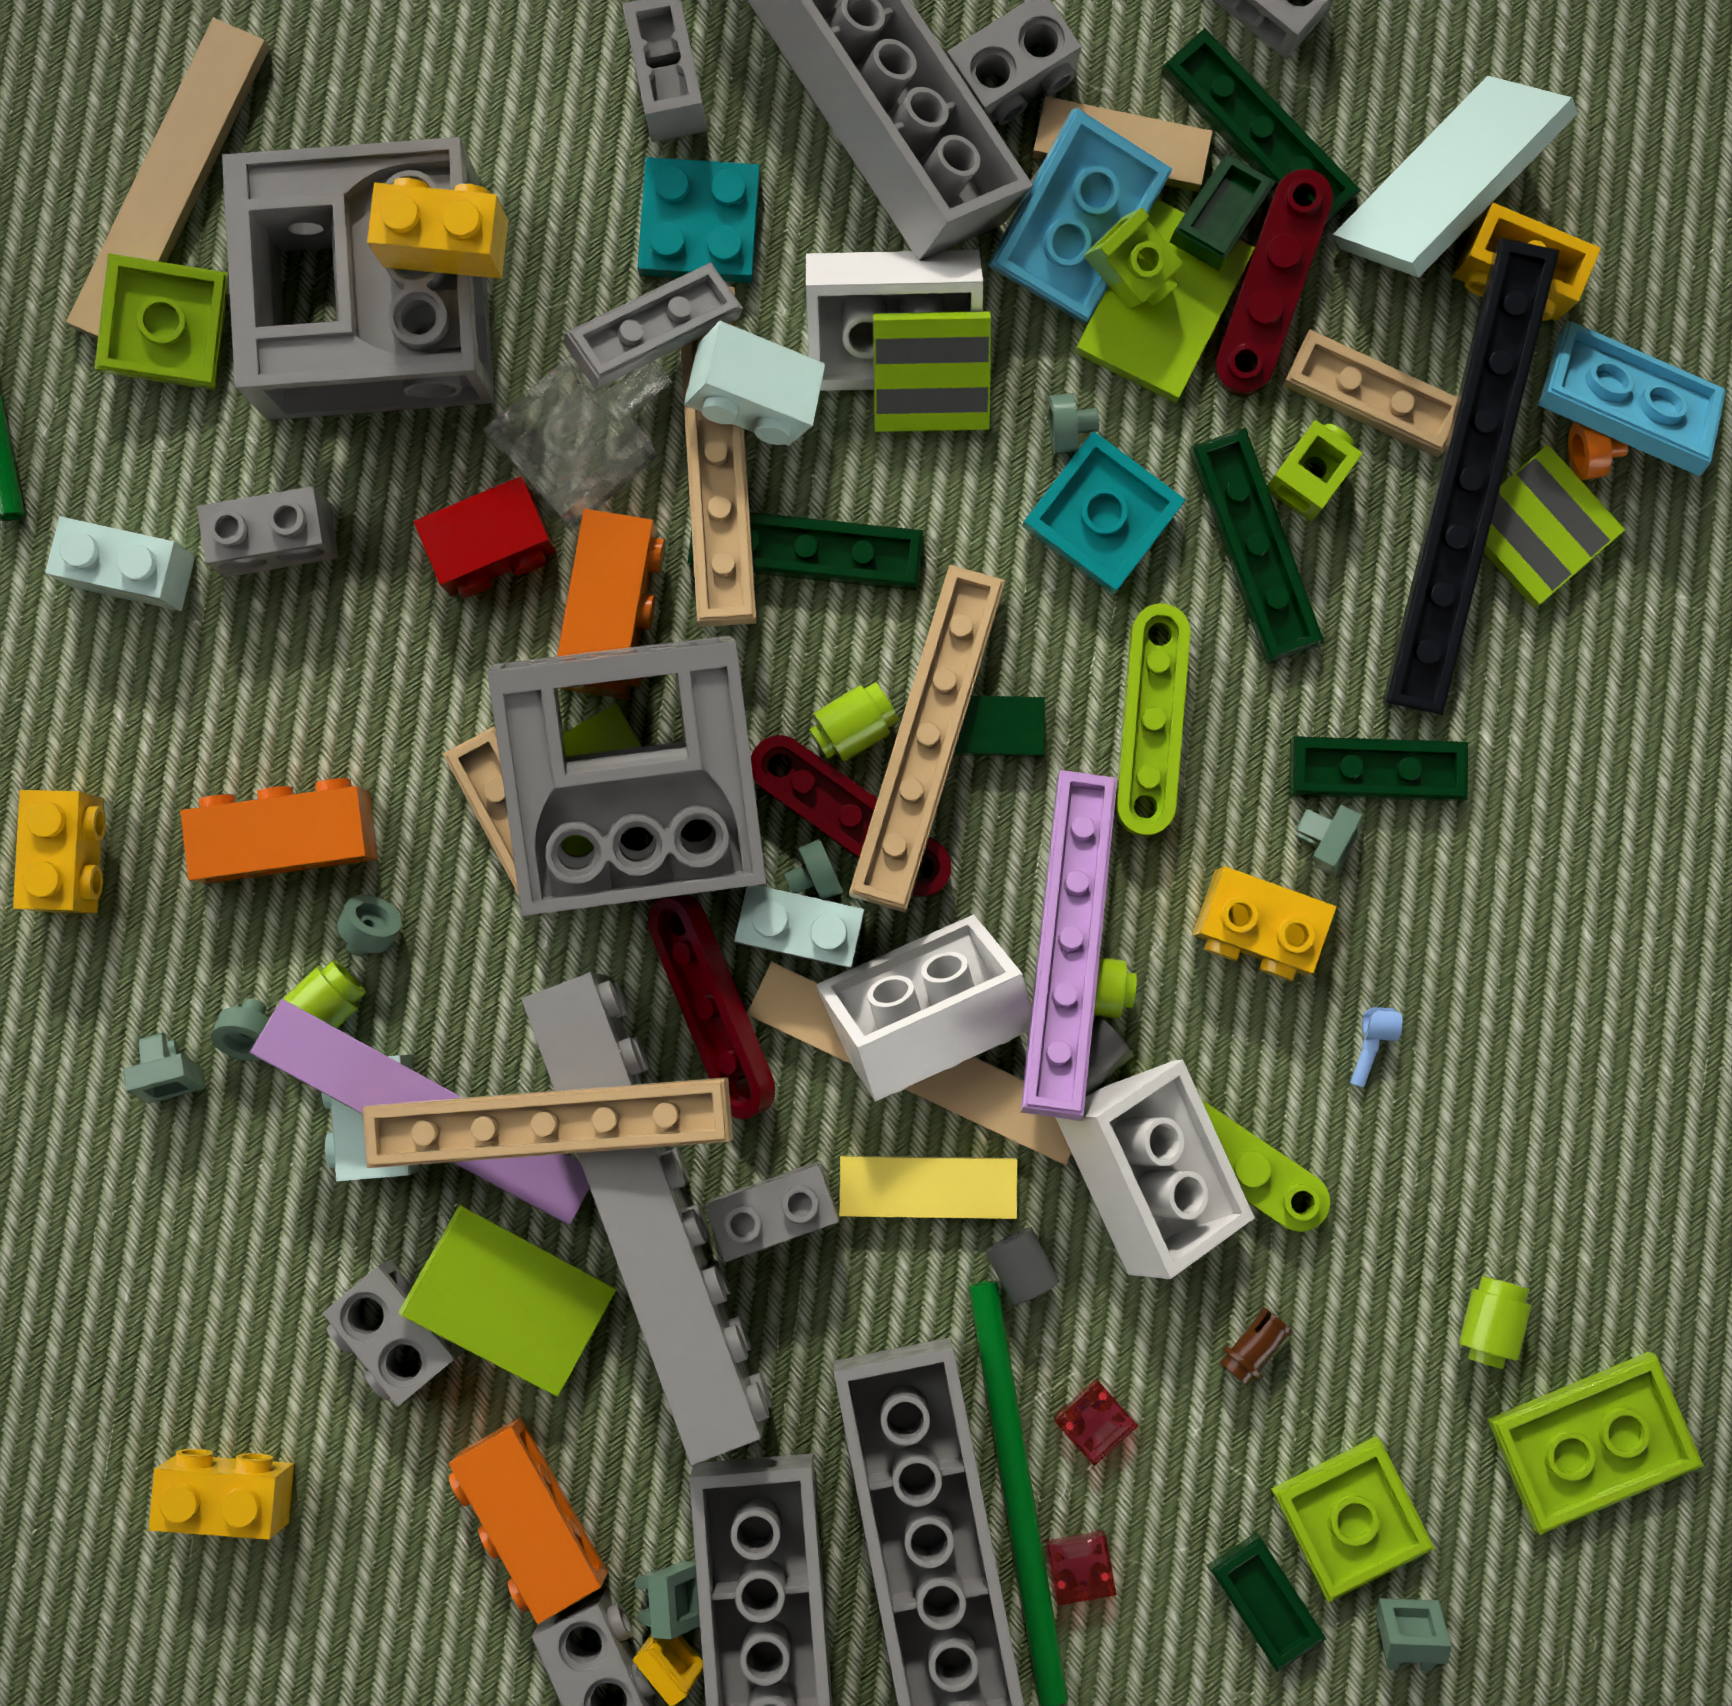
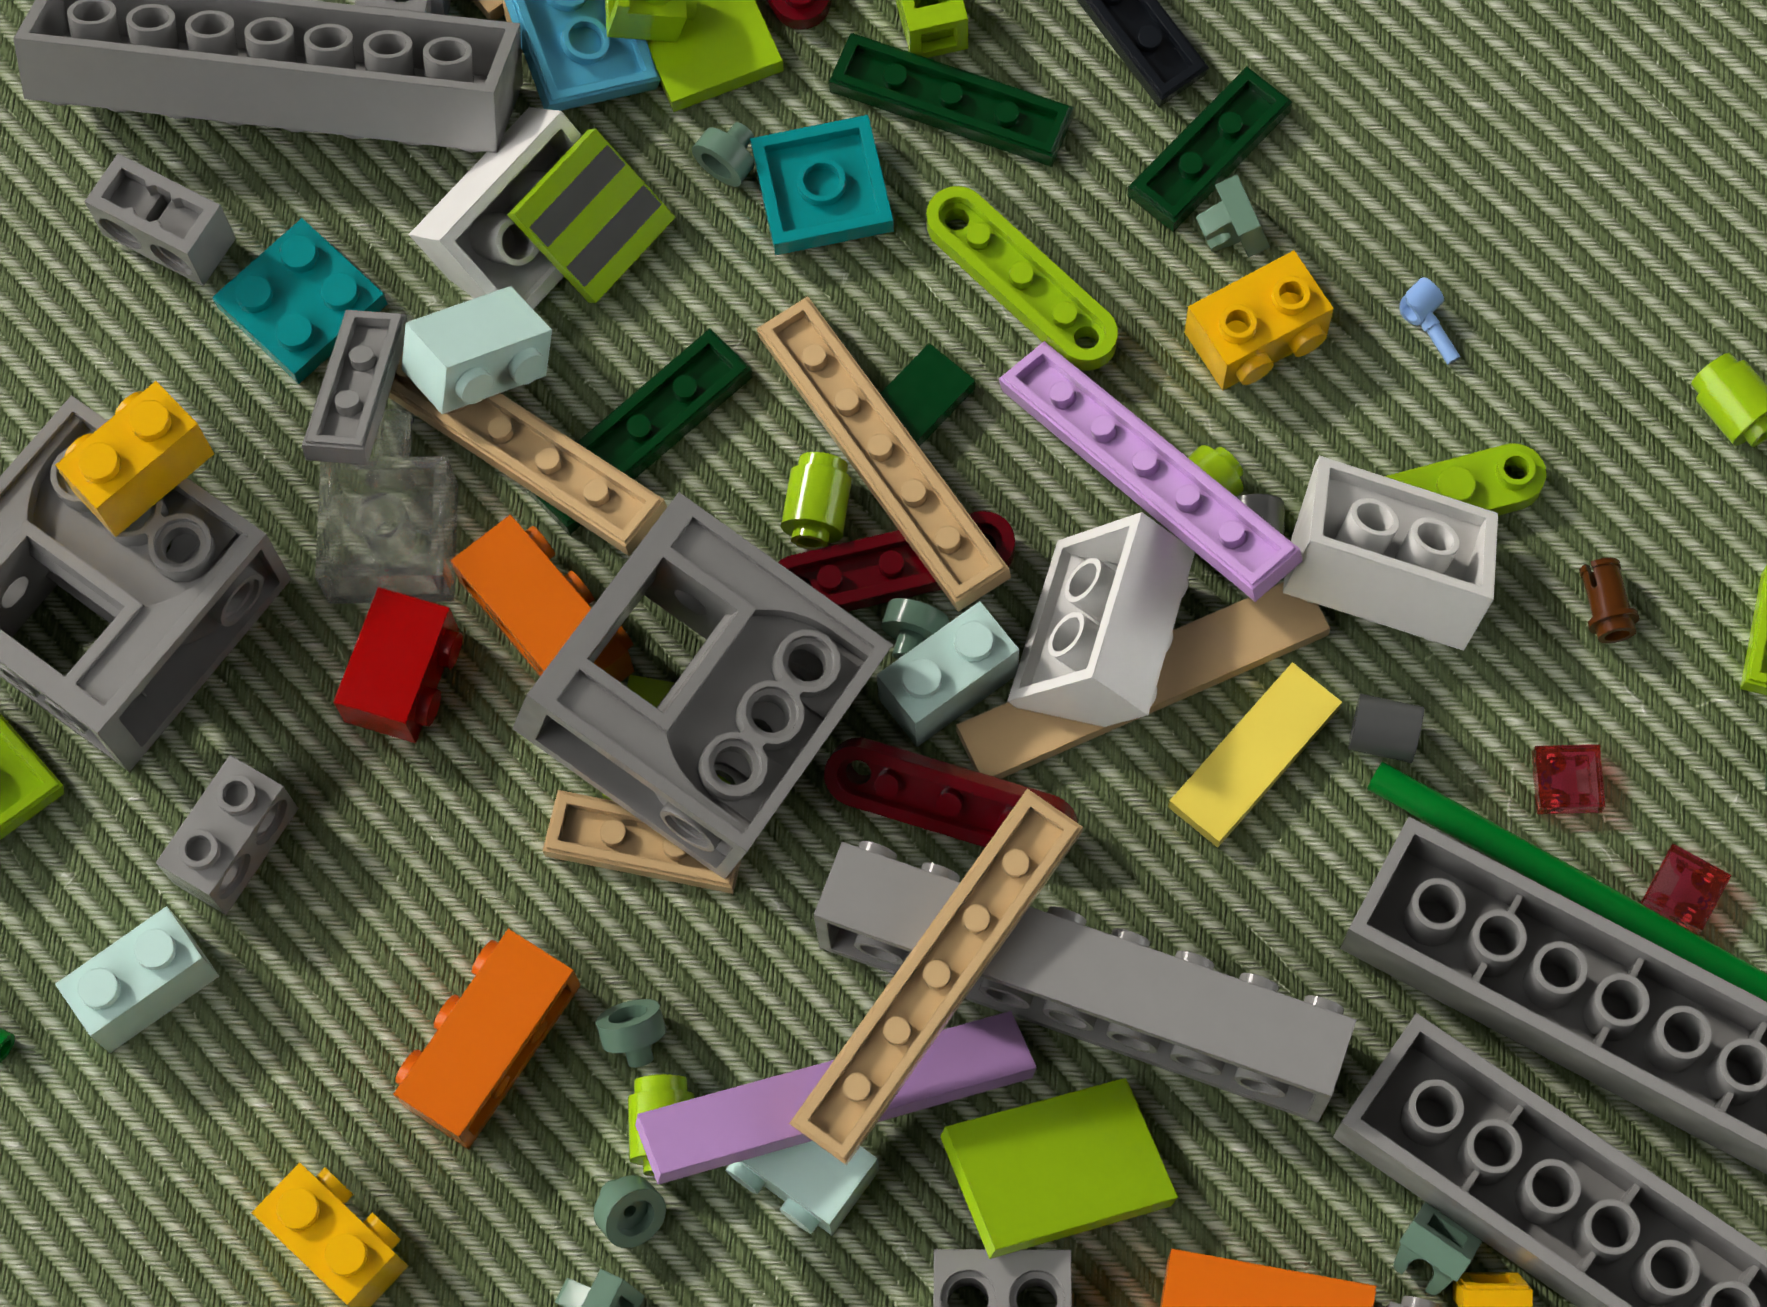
camera: 45 degrees left, 15 degrees down
(772, 1211) = (1171, 880): light grey brick -> none

